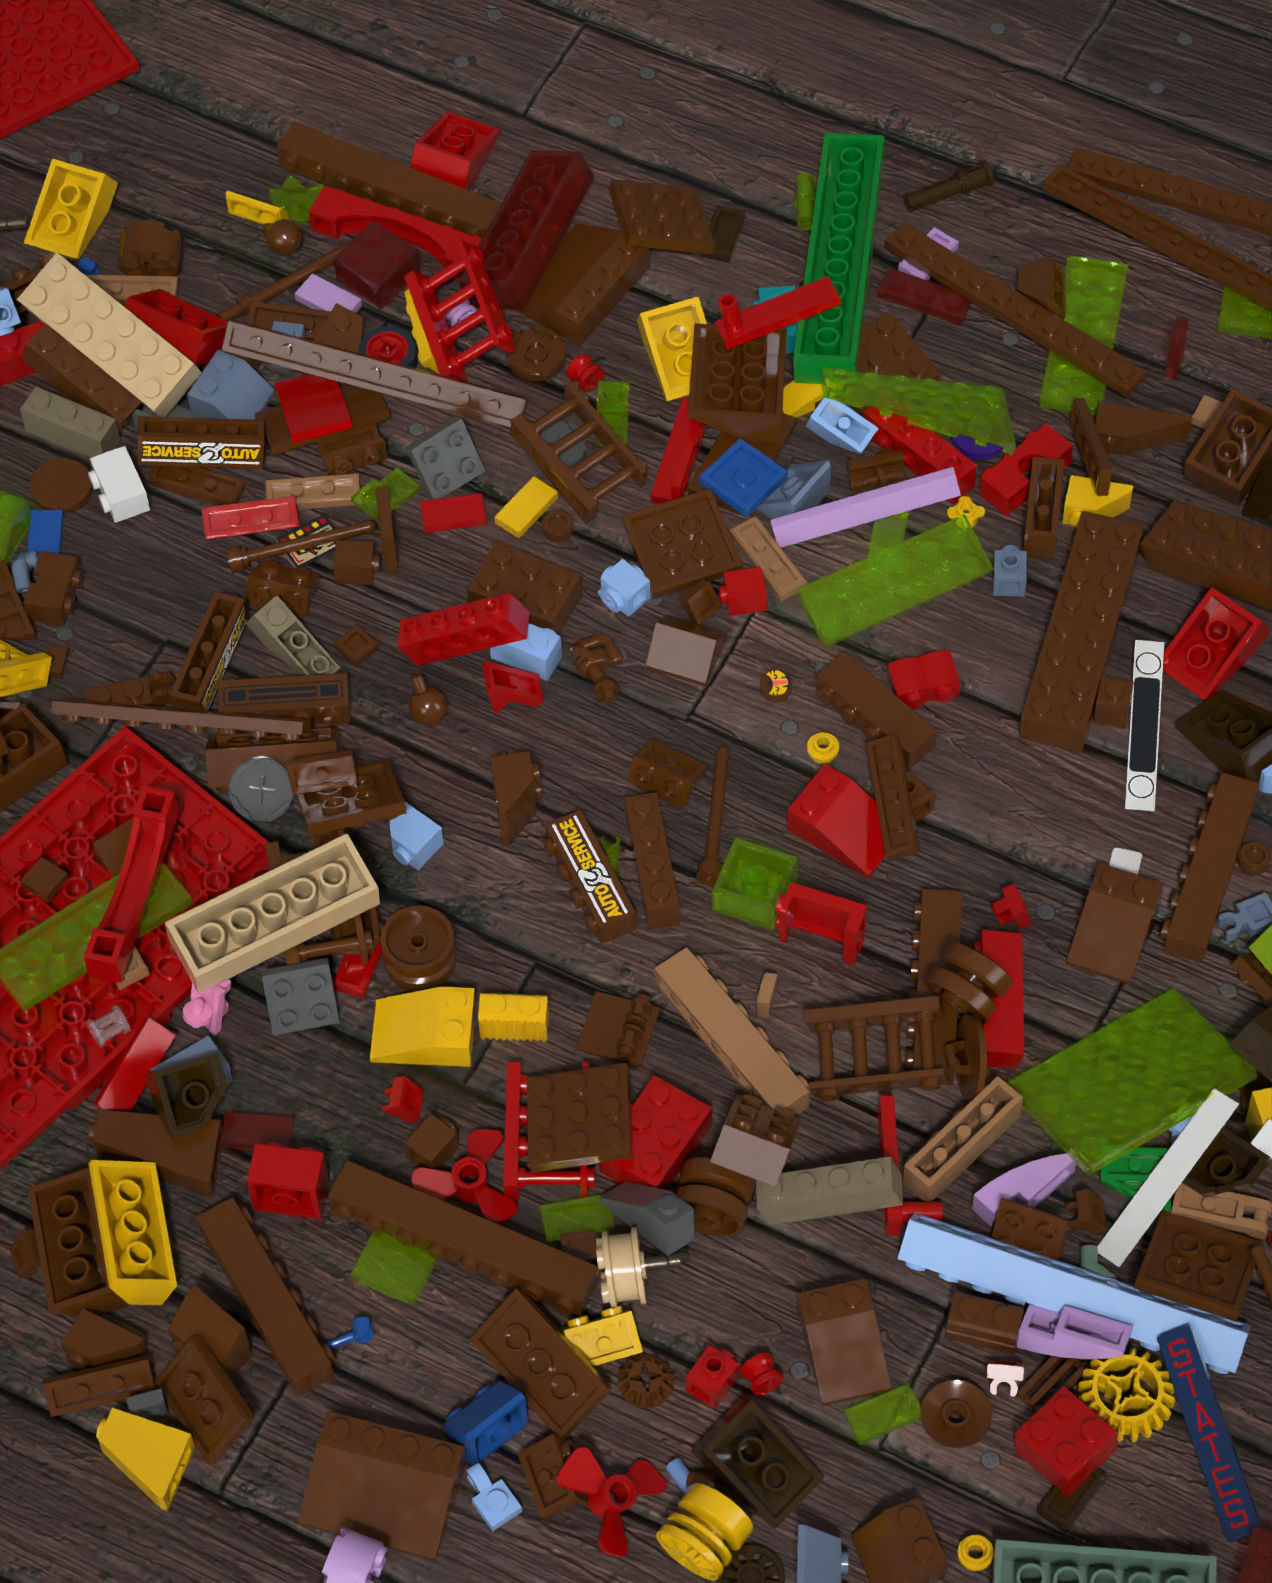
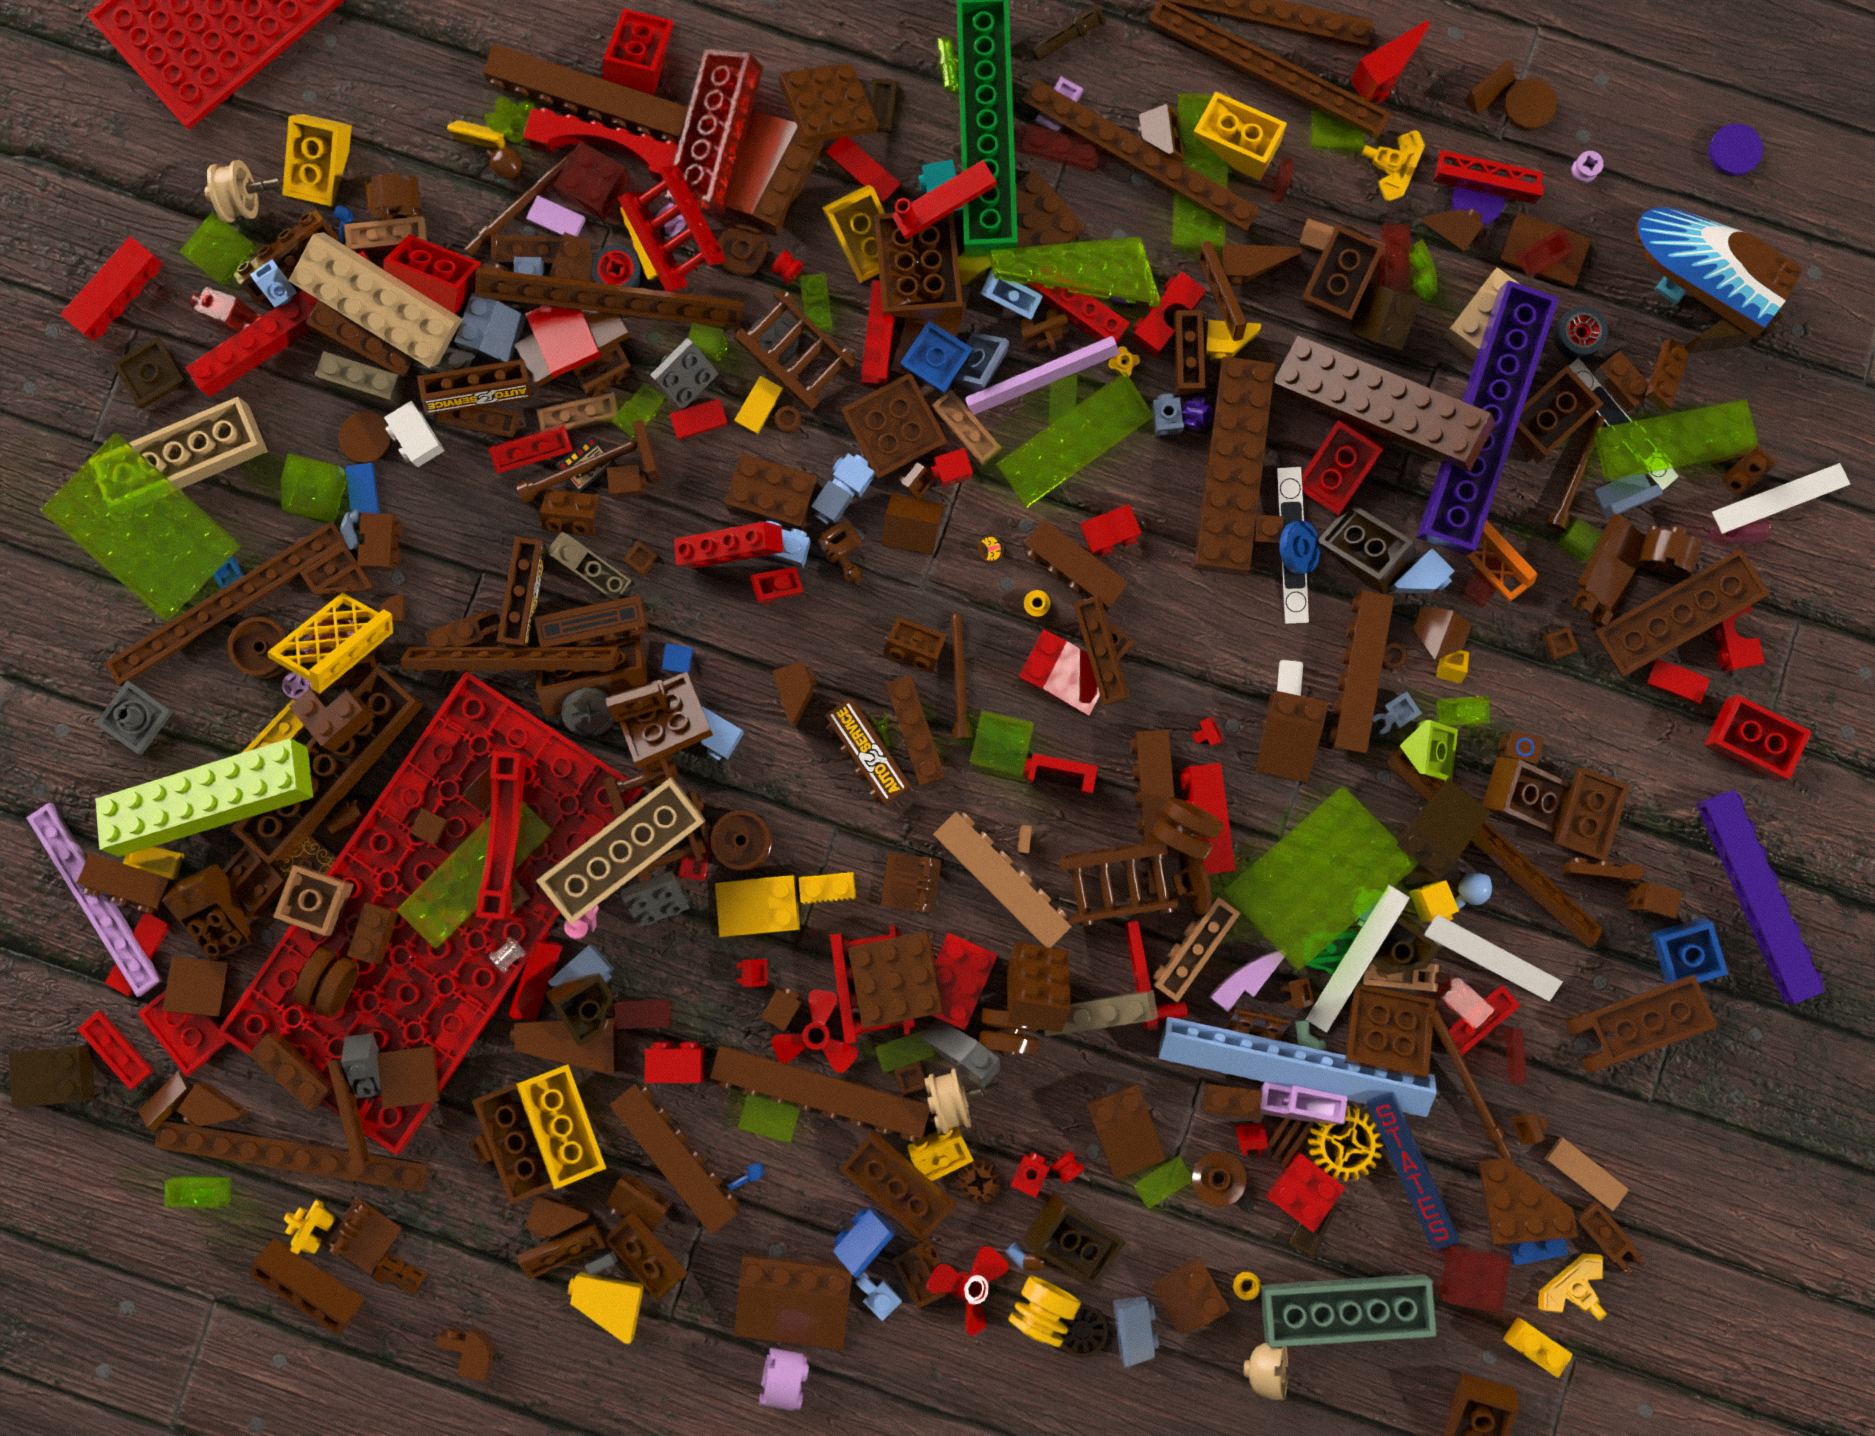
camera: 10 degrees left, 25 degrees up
(378, 749) = (677, 658): none -> blue tile
(426, 704) = (708, 610): reddish brown piece -> none
(483, 432) = (709, 341): none -> clear neon green brick
(593, 612) = (831, 503): none -> sand blue brick
(686, 284) = (863, 168): none -> red tile
(1045, 571) = (1197, 413): none -> dark purple gear
(1134, 300) = (1240, 134): none -> yellow slope
(1150, 721) = (1299, 547): none -> blue tile

